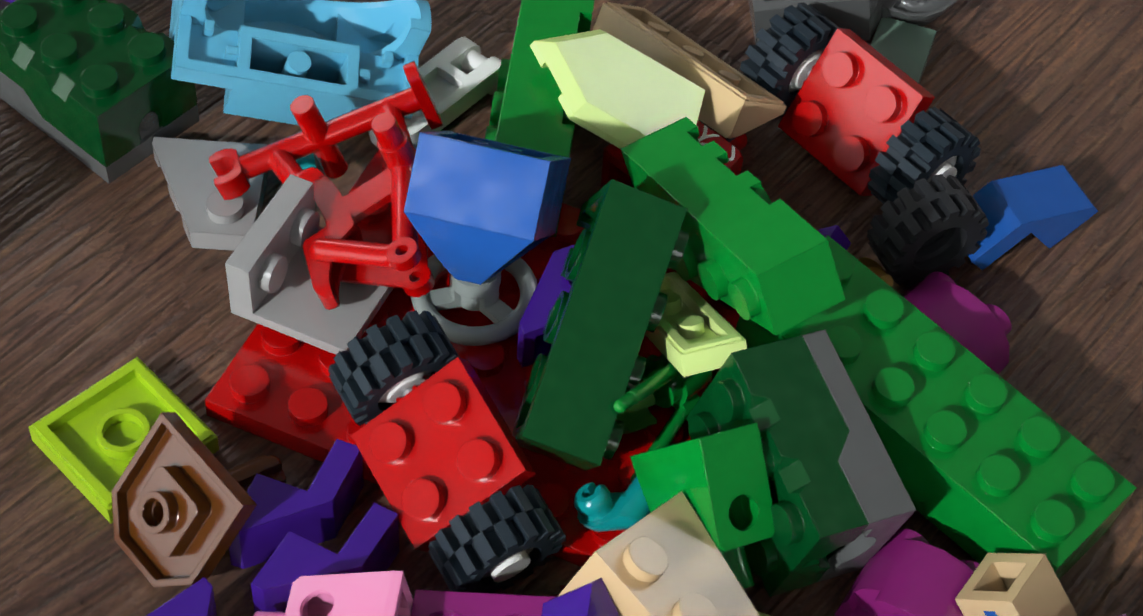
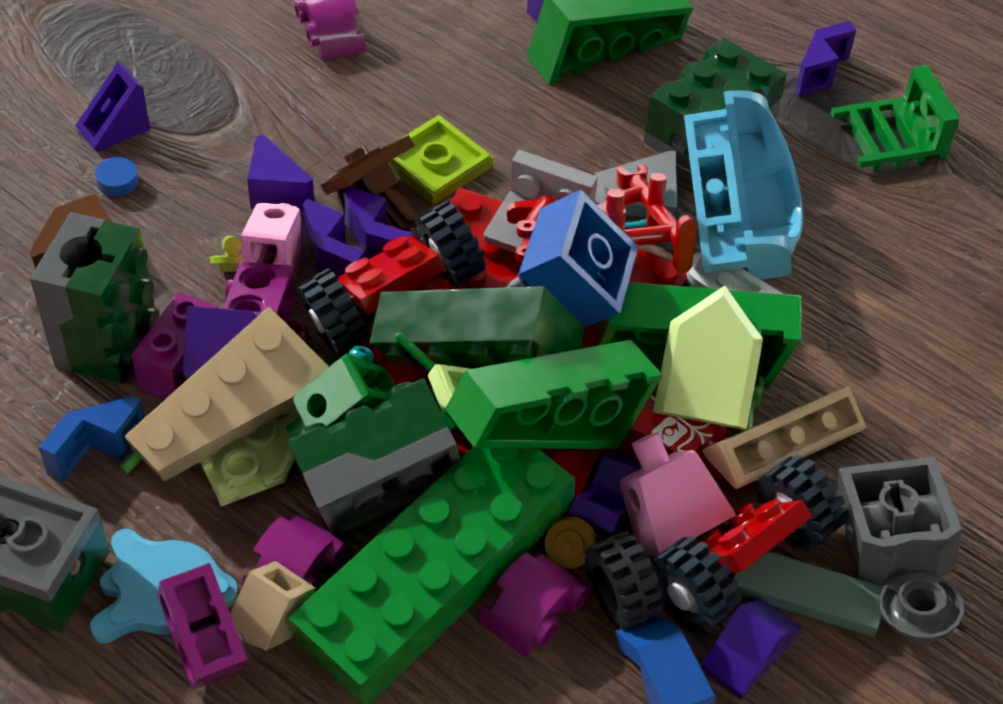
camera: 90 degrees right, 0 degrees up
(801, 163) = (670, 496): none -> bright pink torso
(1001, 146) = (749, 646): none -> dark purple slope

